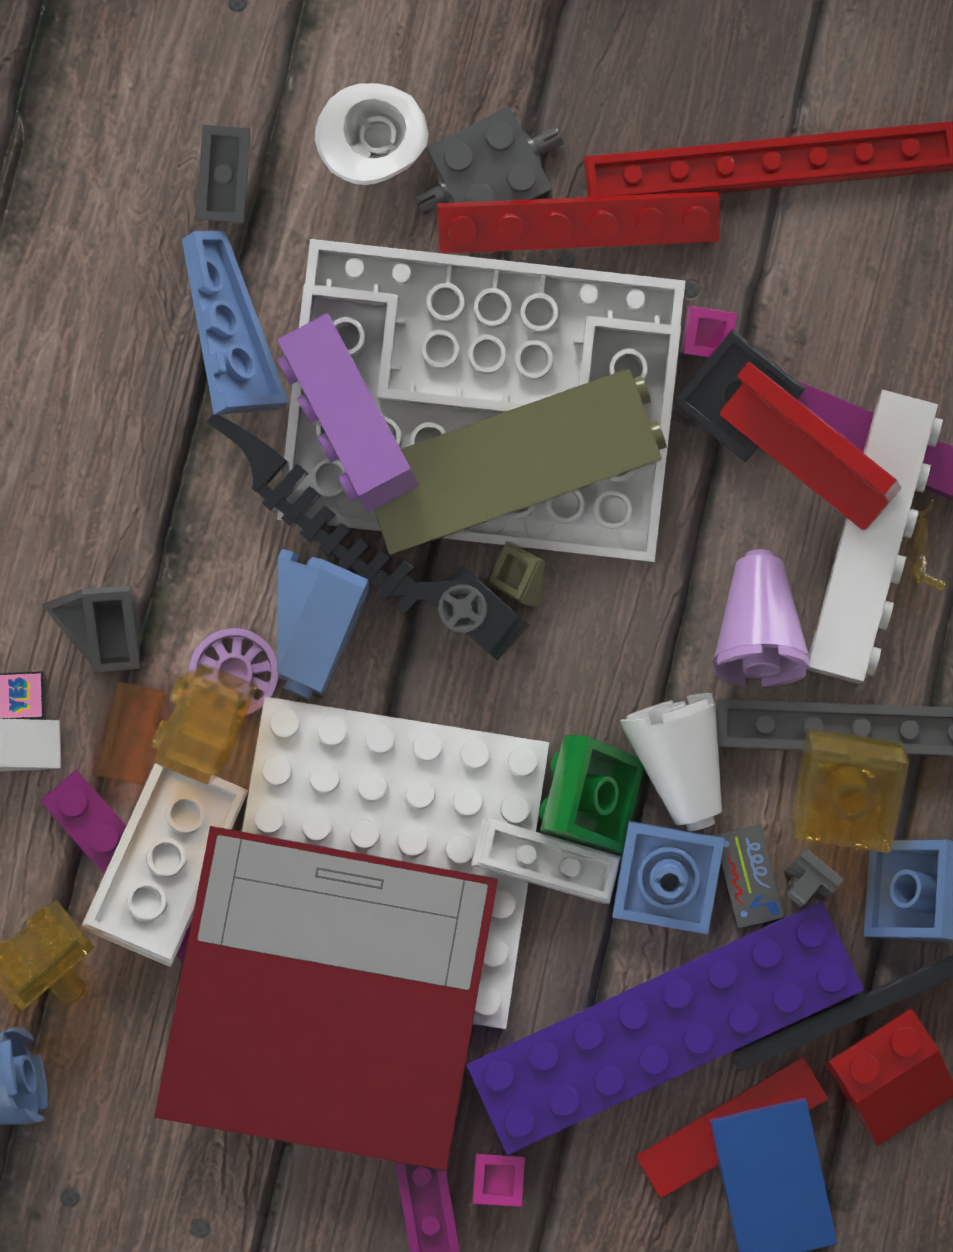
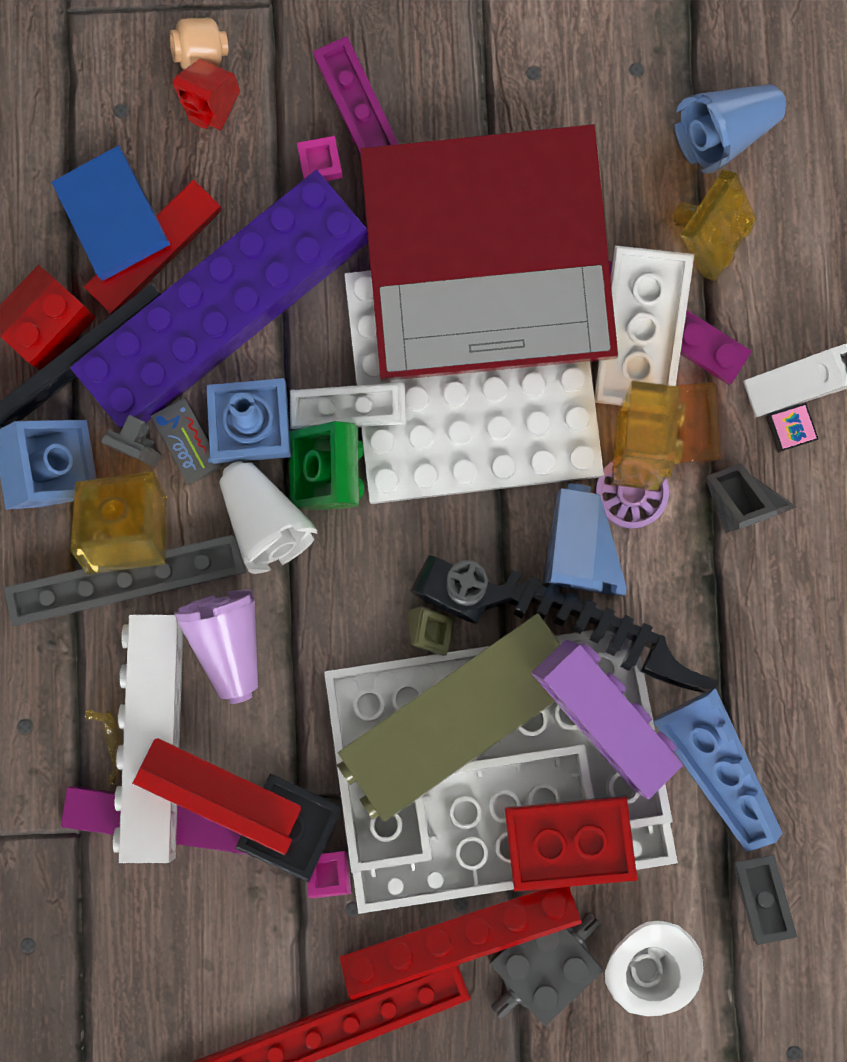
camera: 165 degrees right, 5 degrees up
(425, 291) = (570, 843): none -> red tile

